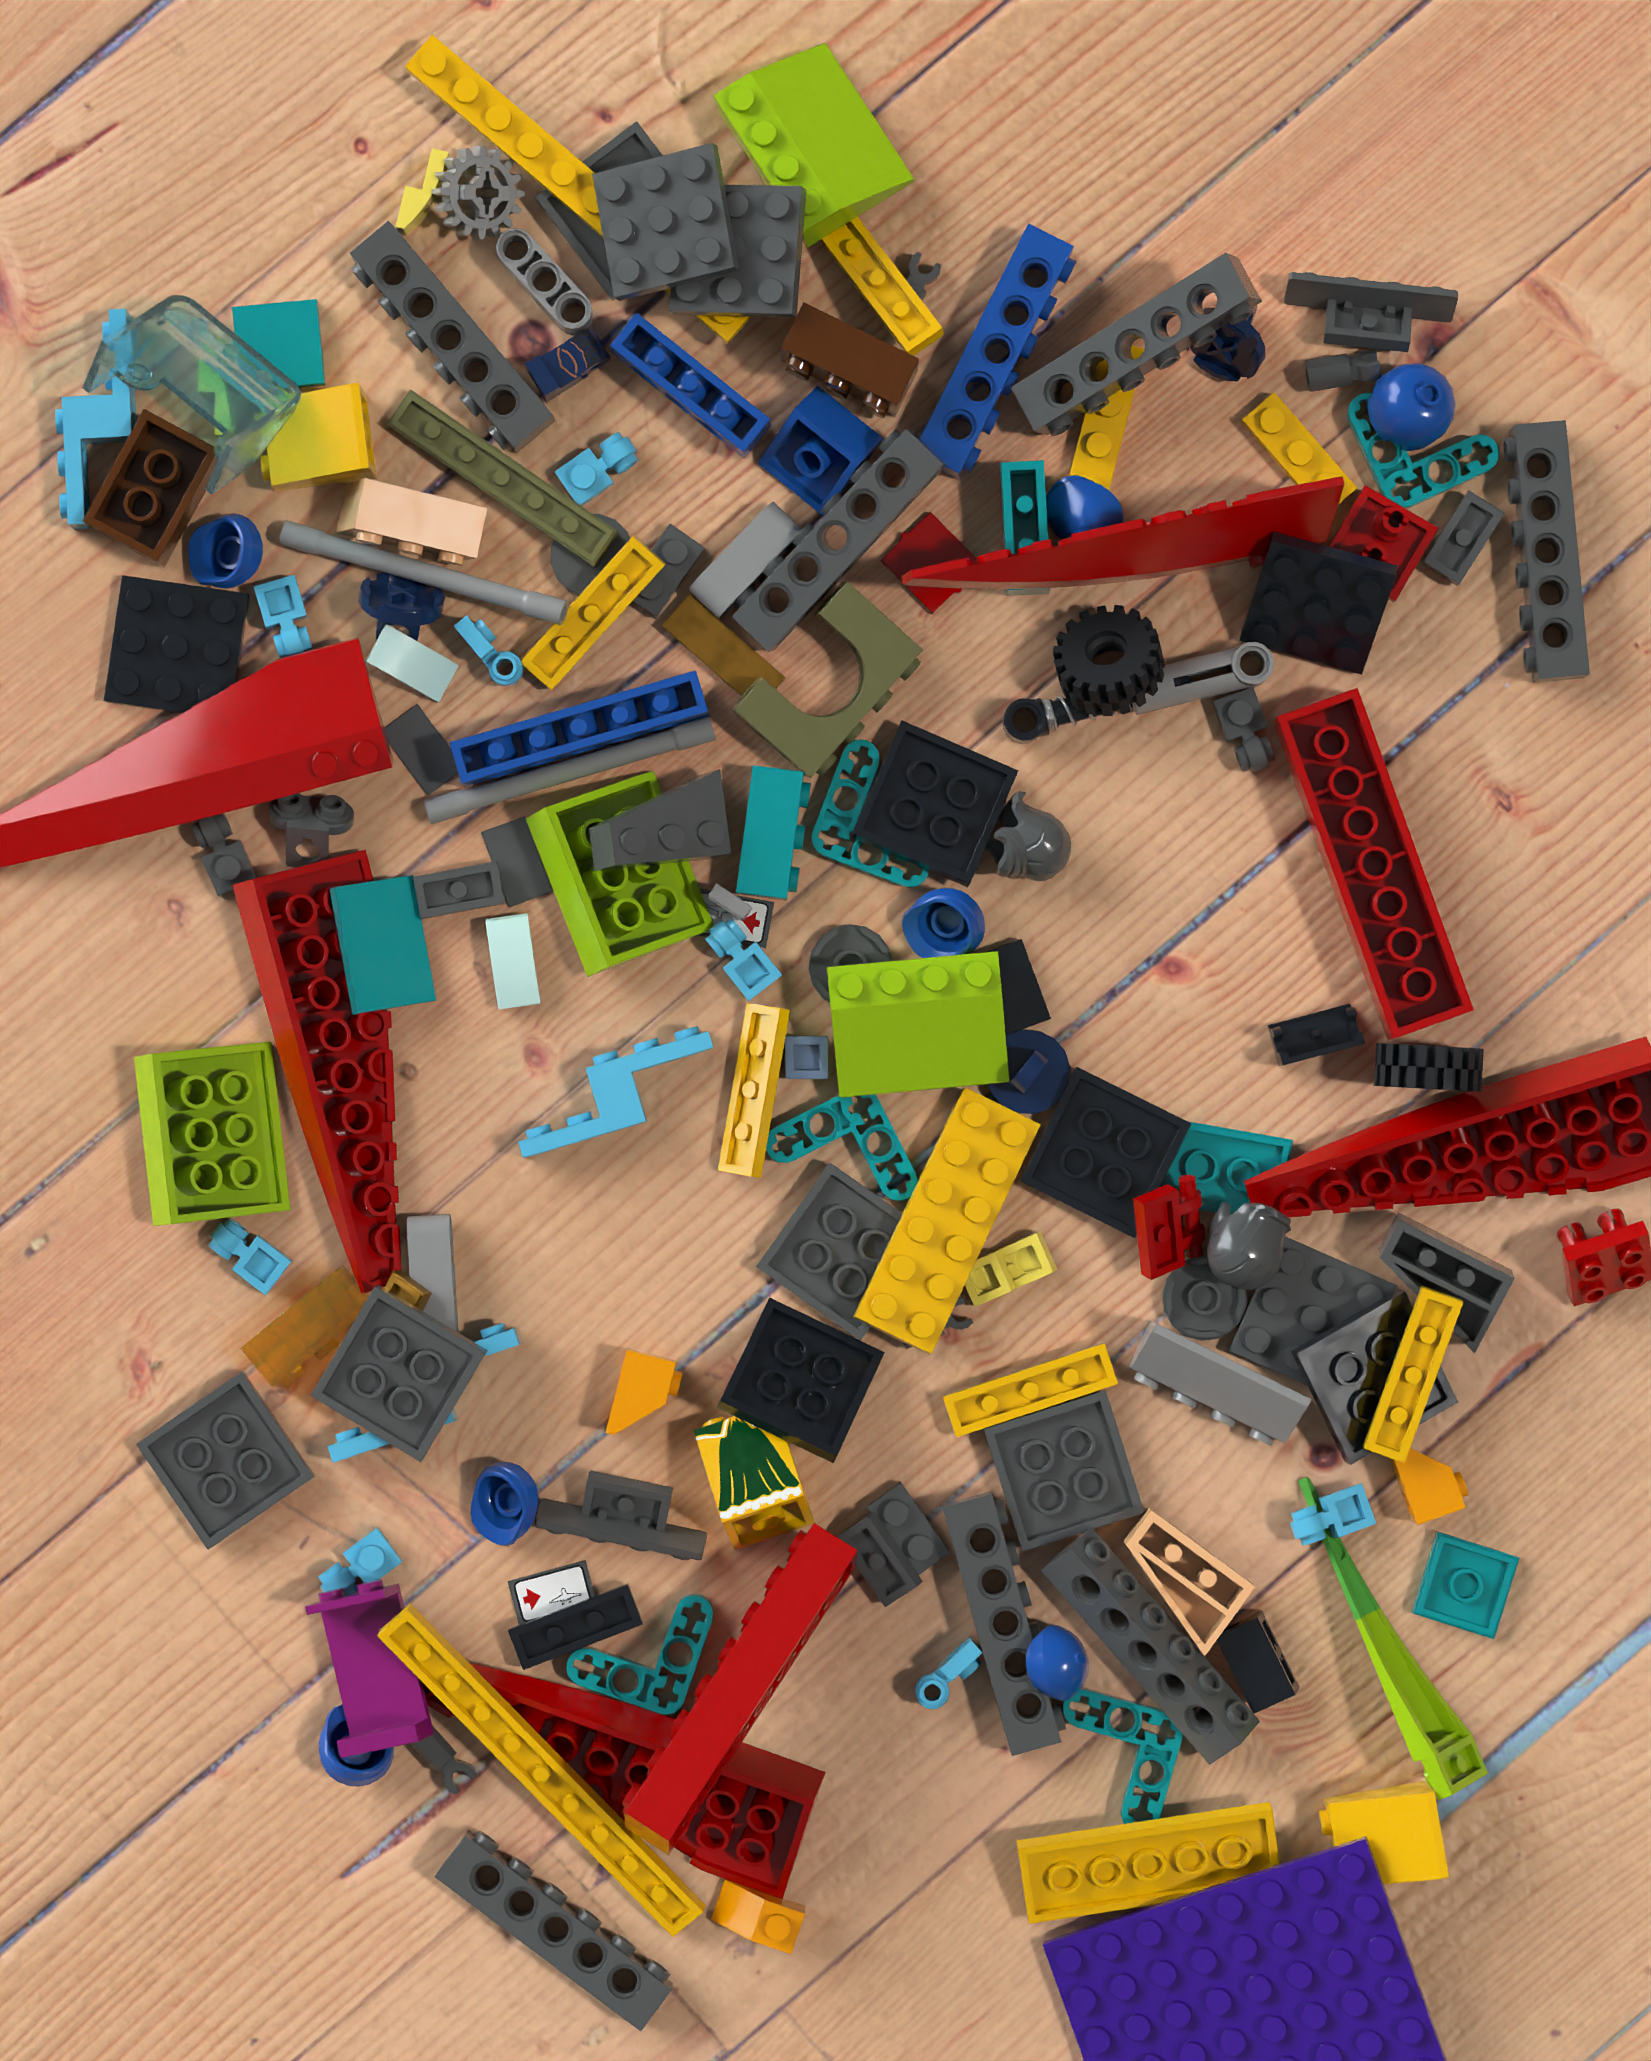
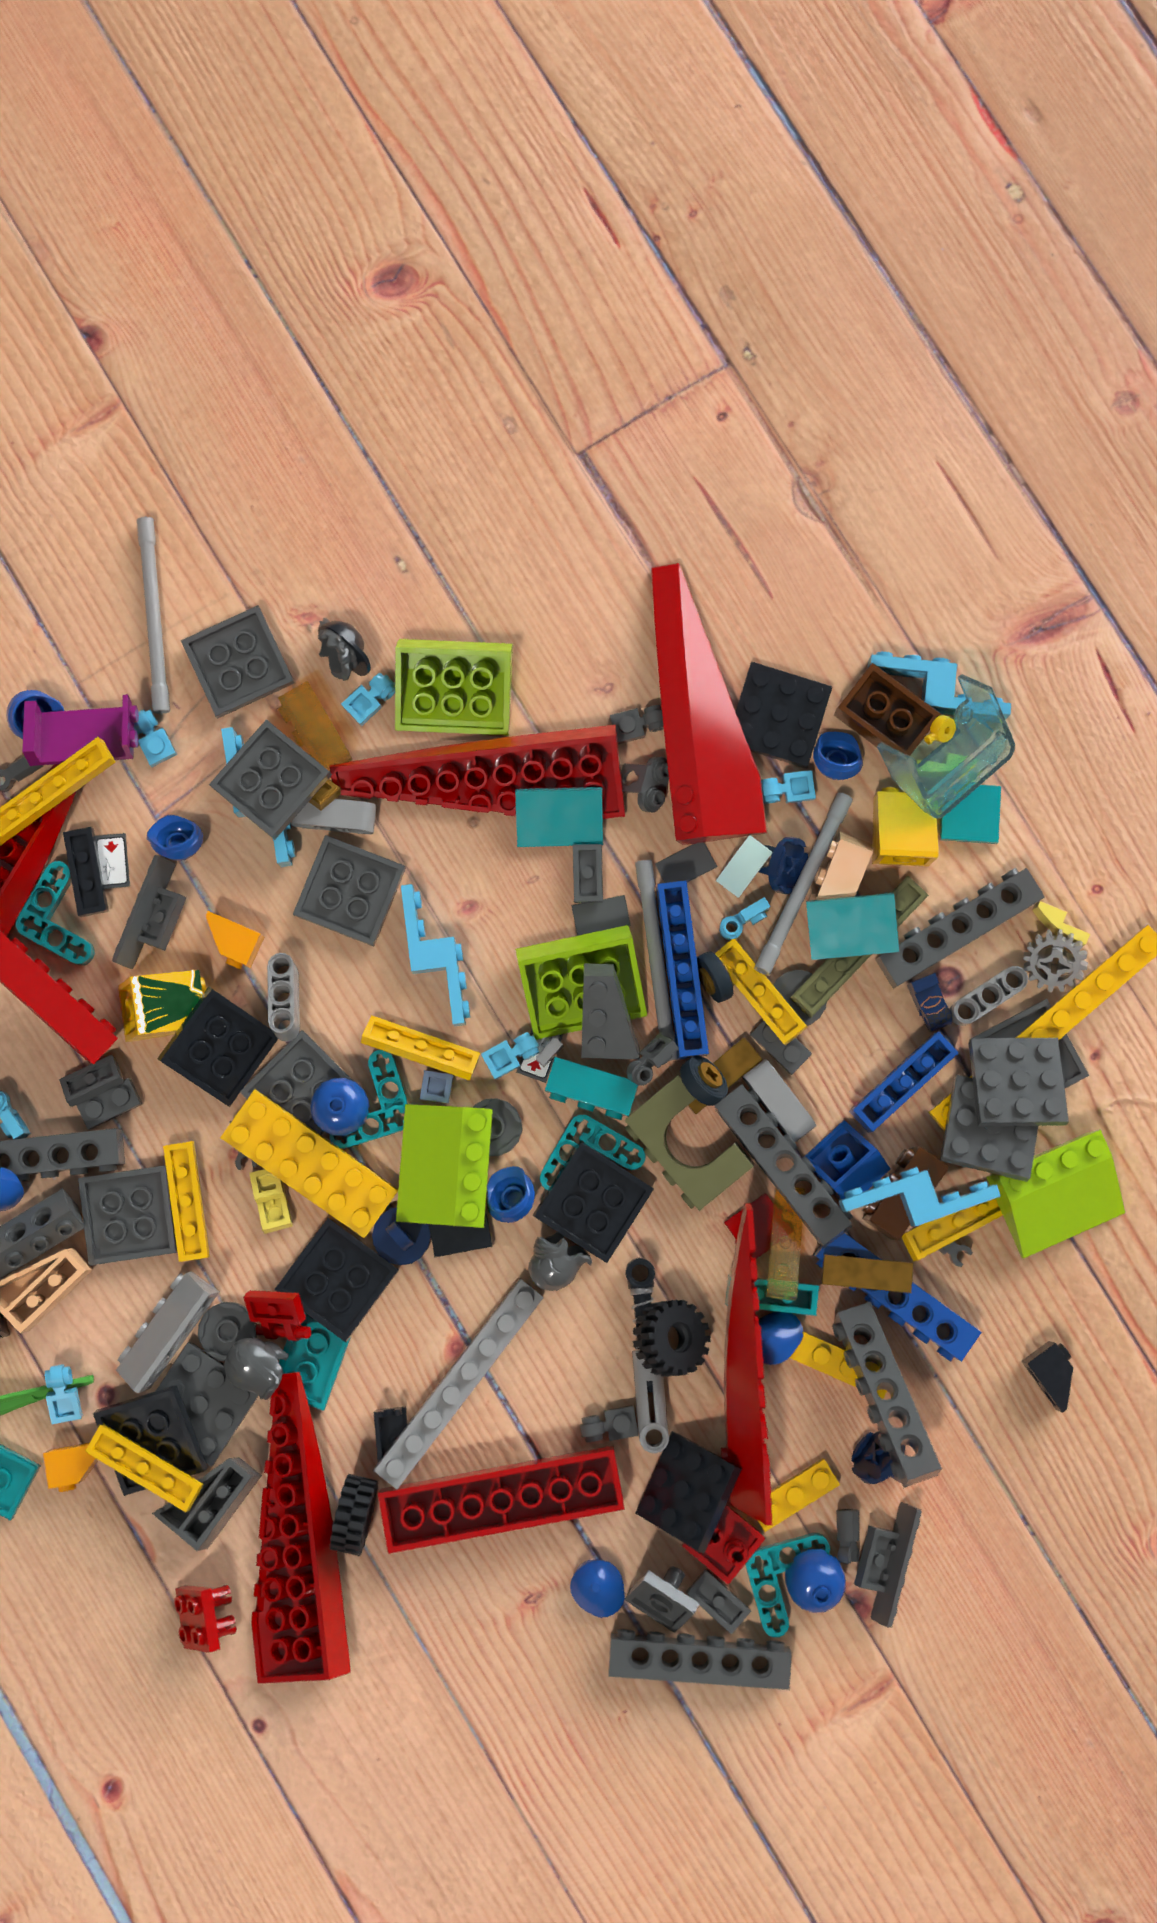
camera: 100 degrees right, 5 degrees down
(66, 1629) = (147, 543): none -> light grey piece
(167, 405) = (941, 730): none -> yellow piece
(181, 1305) = (344, 649): none -> hair
(477, 491) = (852, 926): none -> teal tile
(513, 961) = (534, 901): light aqua slope -> none
(540, 1234) = (349, 890): none -> dark grey plate
(582, 679) = (714, 977): none -> black wheel
(587, 477) = (853, 1003): medium azure plate -> none
(695, 1310) = (278, 985): none -> light grey beam
(709, 748) = (655, 1054): none -> dark grey plate
(736, 671) = (703, 1080): none -> black wheel
(853, 339) = (919, 1196): none -> medium azure bracket
(858, 1191) = (339, 1106): none -> blue cylinder
(957, 519) = (784, 1250): none -> clear yellow tile
(972, 397) = (867, 1273): none -> pearl gold tile
(1068, 116) = (1052, 1373): none -> black slope
(1222, 952) = (458, 1384): none -> light grey plate
(1472, 615) = (662, 1599): none -> dark grey tile
(1473, 710) = (598, 1588): none -> blue hat

